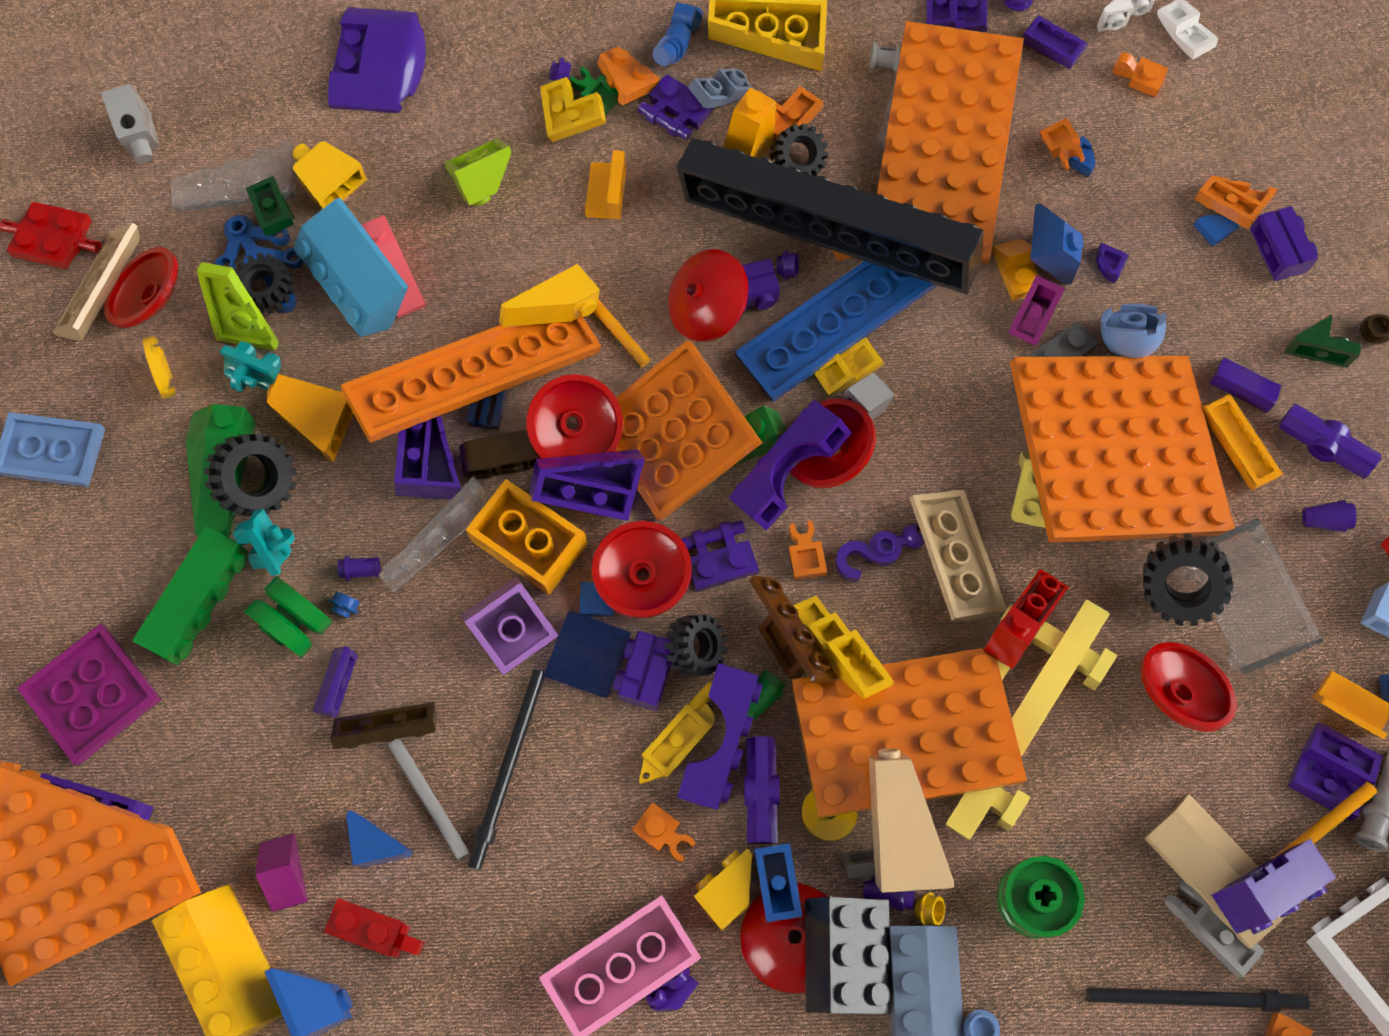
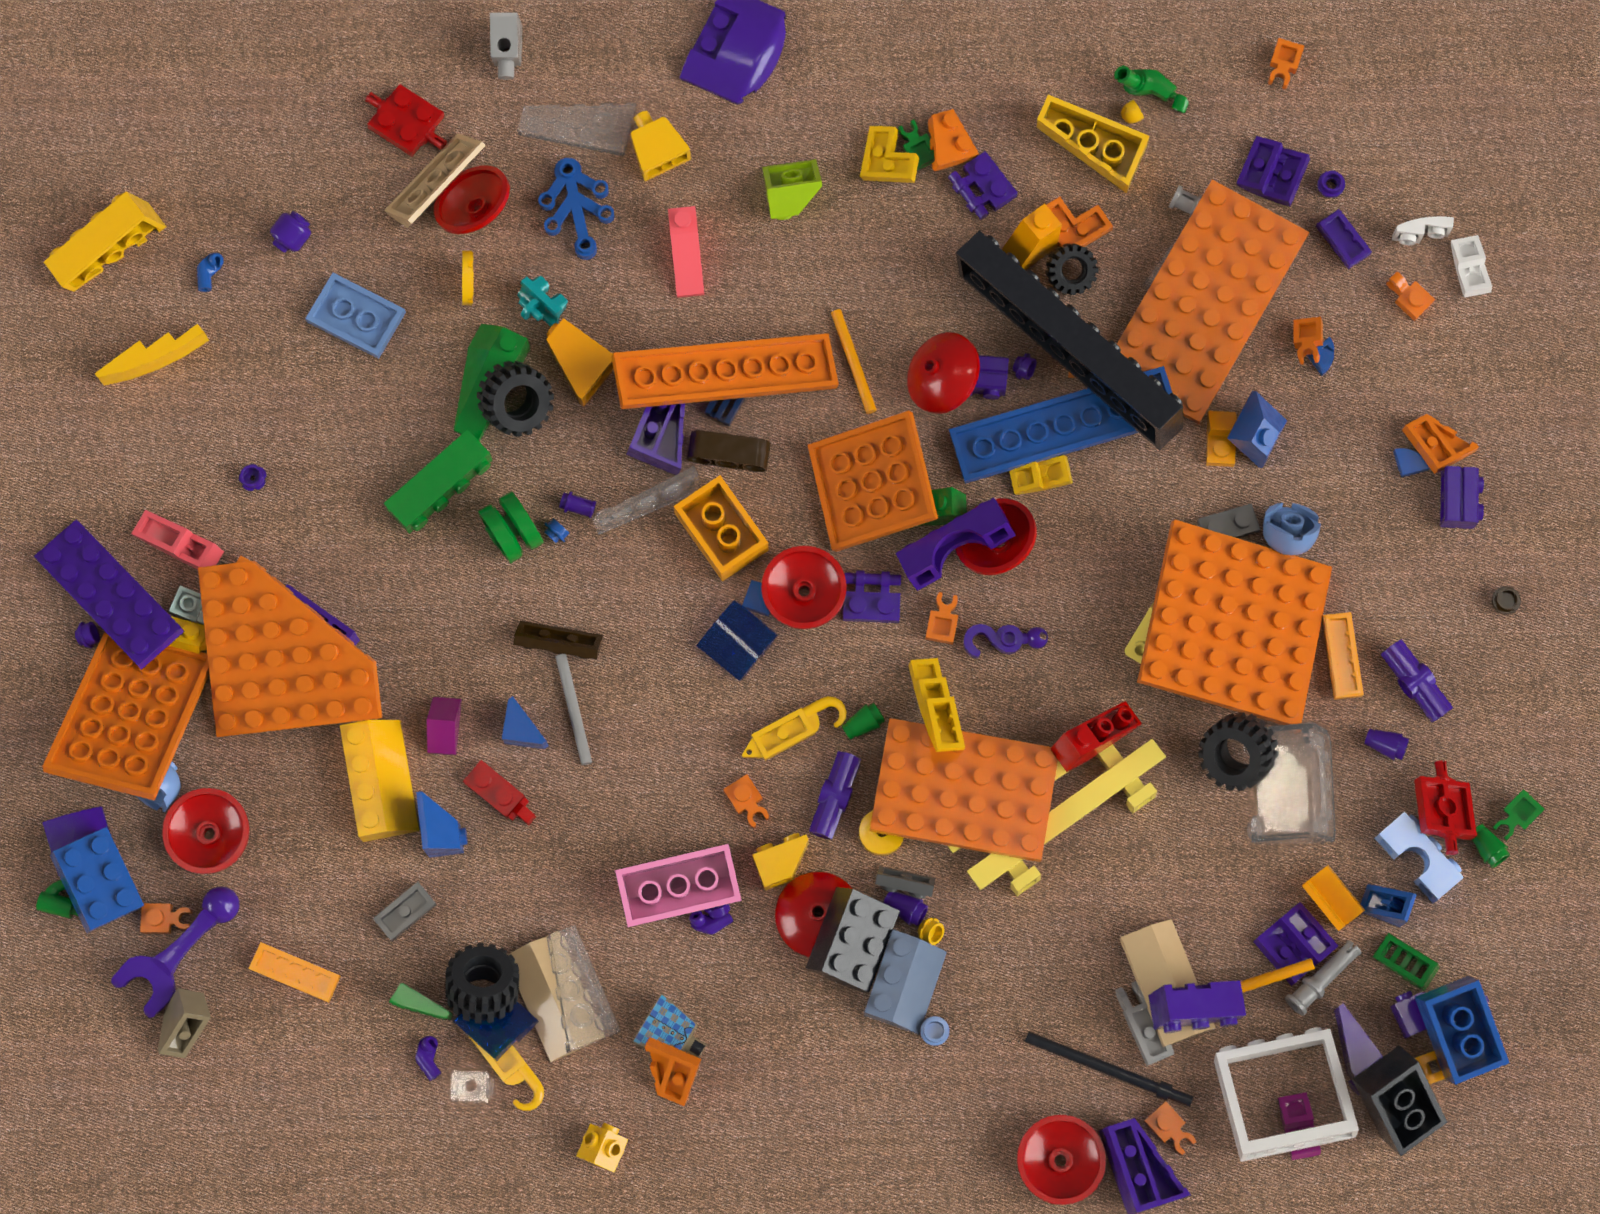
camera: 20 degrees right, 5 degrees up
(89, 694) = (335, 532): magenta plate -> none
(232, 308) = (543, 250): lime wing -> none
(266, 267) = (568, 217): black tyre -> none
(269, 542) = (513, 459): teal hips -> none
(270, 206) = (601, 163): dark green slope -> none
(335, 682) = (529, 591): dark purple slope -> none
(351, 269) = (651, 245): dark azure slope -> none
(486, 832) = (610, 751): black bar -> none
(509, 625) = (682, 595): medium lavender slope -> none
(553, 301) = (814, 334): yellow slope -> none
(559, 69) = (892, 116): dark purple plate -> none
(579, 397) = (795, 466): red dish -> none
(589, 482) = (786, 501): dark purple wedge -> none
(606, 188) = (894, 241): light orange panel -> none
(645, 671) = (778, 670): dark purple brick -> none
(676, 38) = (1005, 122): blue piece -> none
(707, 779) = (839, 714): dark purple arch -> none
(709, 645) = (837, 664): black tyre -> none
(722, 89) = (1027, 183): sand blue slope -> none
(778, 882) = (820, 866): blue slope -> none
(787, 635) = (901, 681): reddish brown bracket -> none
(871, 395) = (1046, 508): light grey brick -> none
(904, 834) = (928, 863): tan slope -> none
(958, 555) = (1065, 665): tan slope -> none
(1036, 310) = (1217, 483): magenta slope -> none
(1060, 891) = (1019, 934): green wheel -> none
(1110, 262) = (1305, 460): dark purple tile -> none
(1188, 687) = (1203, 835): red dish -> none
(1246, 385) = (1371, 608): dark purple slope -> none
(1319, 346) = (1443, 594): dark green slope -> none

